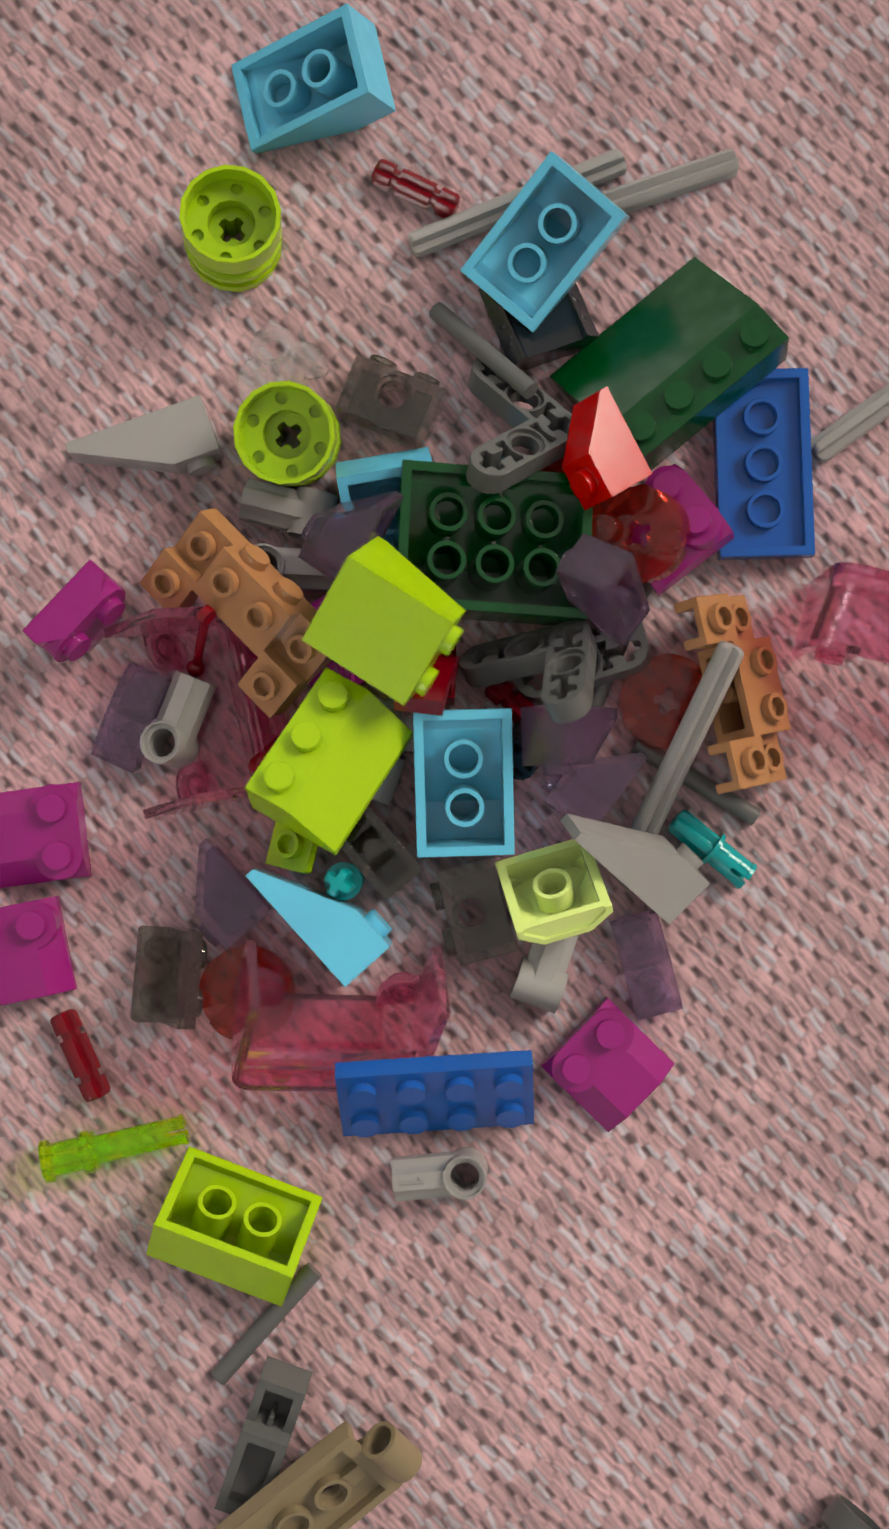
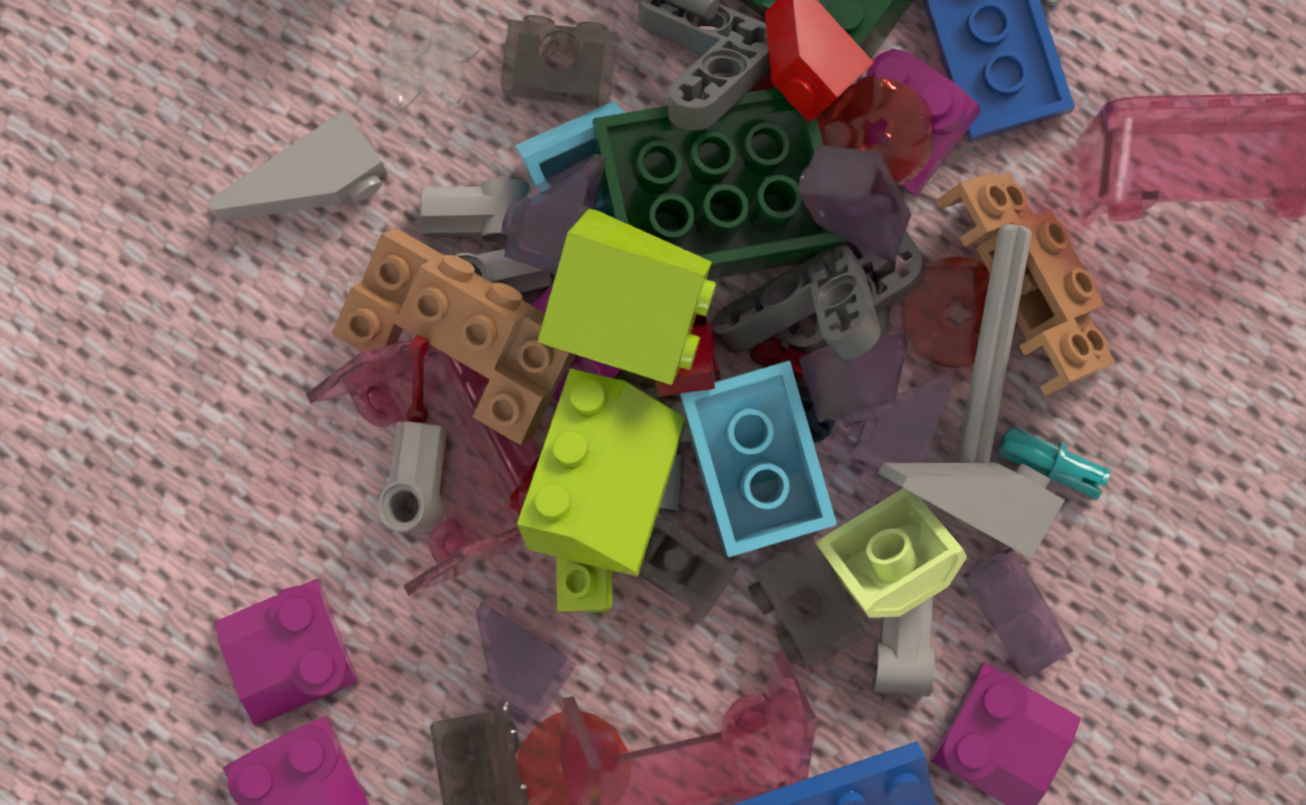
camera: 15 degrees left, 5 degrees down
(78, 614) = (273, 385): magenta slope -> none
(128, 714) = (356, 482): clear purple slope -> none
(260, 433) = (454, 94): lime wheel -> none
(332, 928) = (657, 663): medium azure slope -> none
(343, 881) = (650, 608): teal axle -> none
(704, 786) = (1027, 396): dark grey bar -> none

